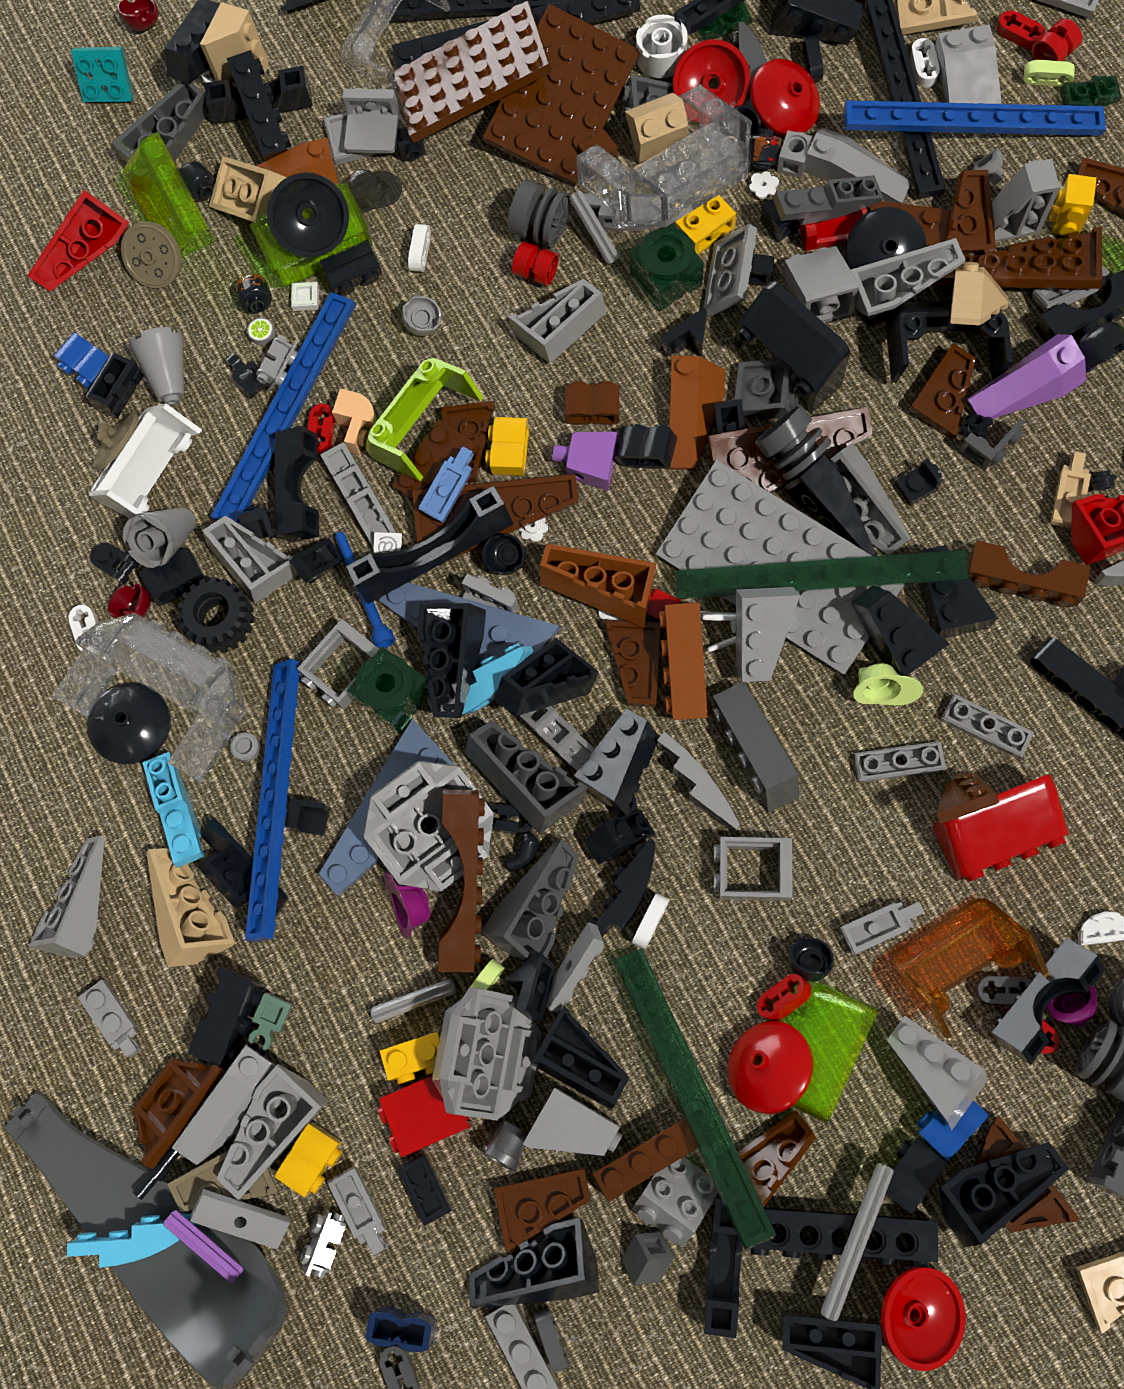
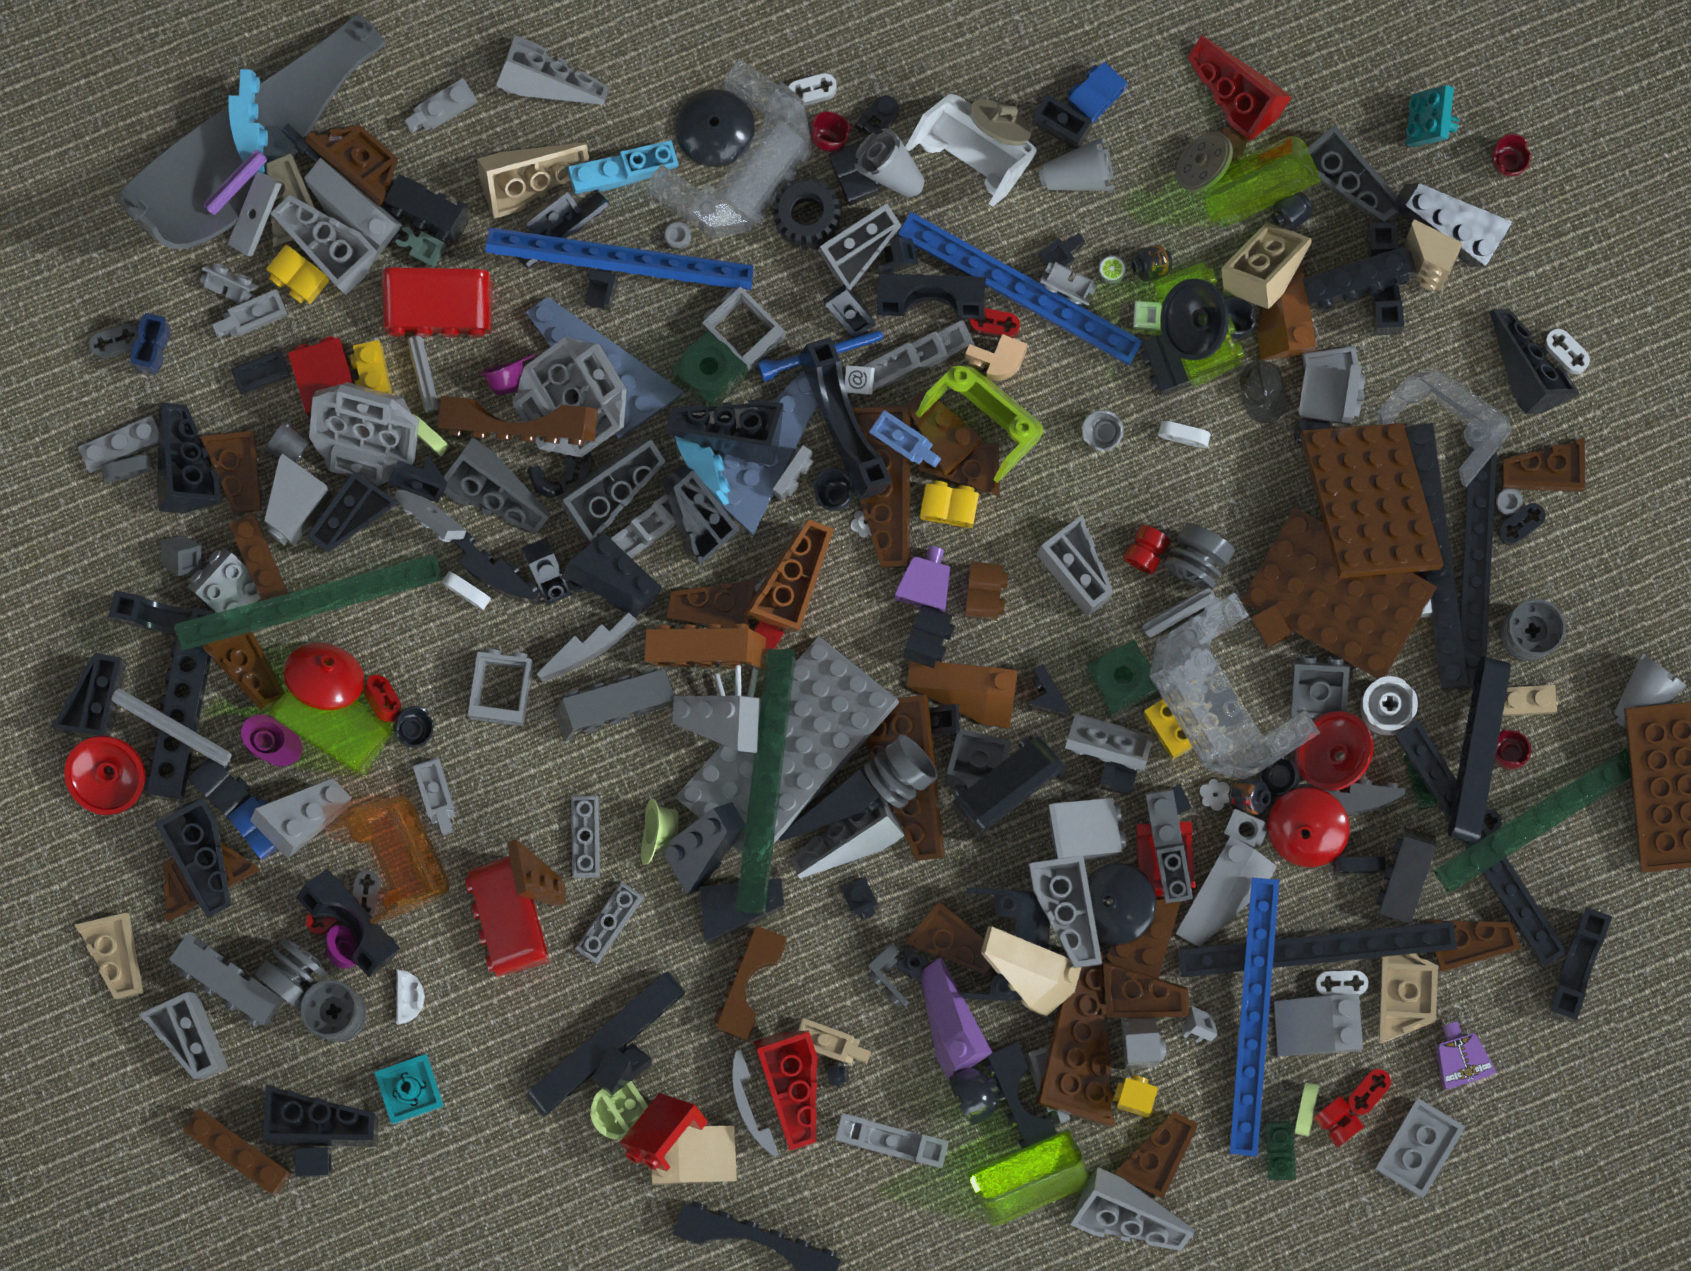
camera: 90 degrees right, 5 degrees up
(331, 993) = (437, 301): none -> red windscreen
(657, 125) = (1287, 686): tan slope -> none
(854, 1119) = (271, 740): none -> magenta piece

